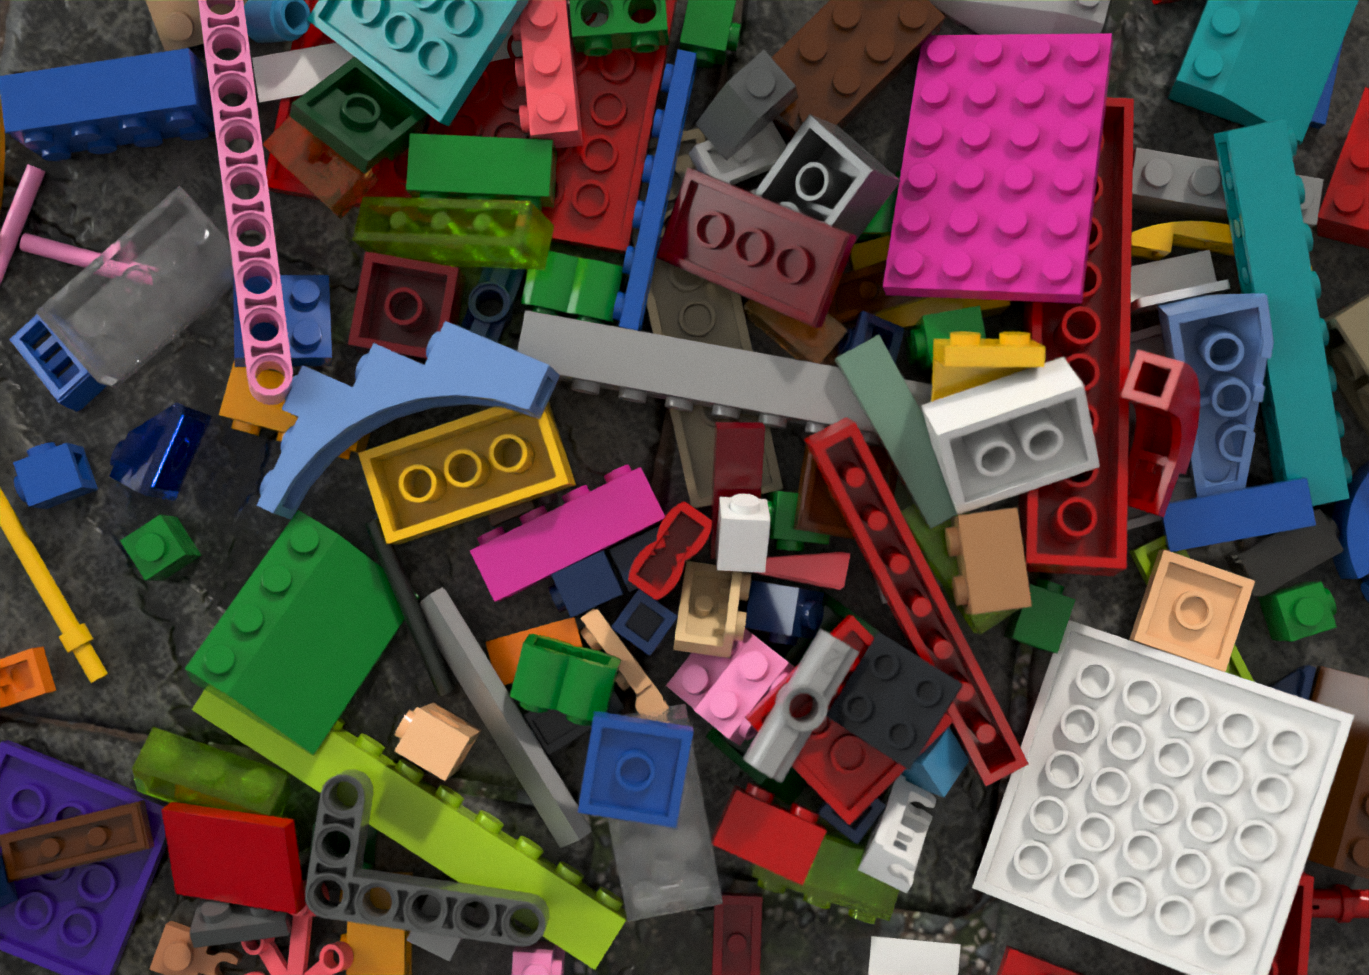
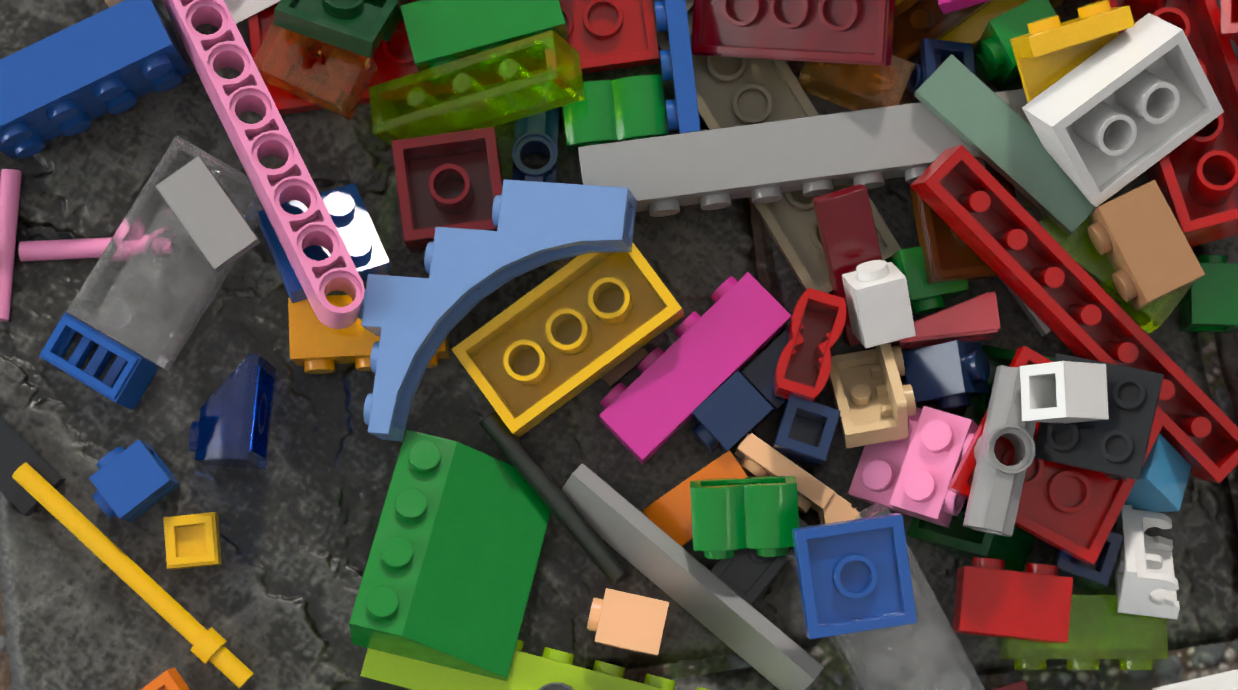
camera: 15 degrees left, 5 degrees down
(91, 542) = (192, 540): none -> yellow tile
(160, 548) = (270, 519): green brick -> none
(182, 265) = (207, 214): none -> light grey tile
(866, 675) = (1064, 392): none -> white brick

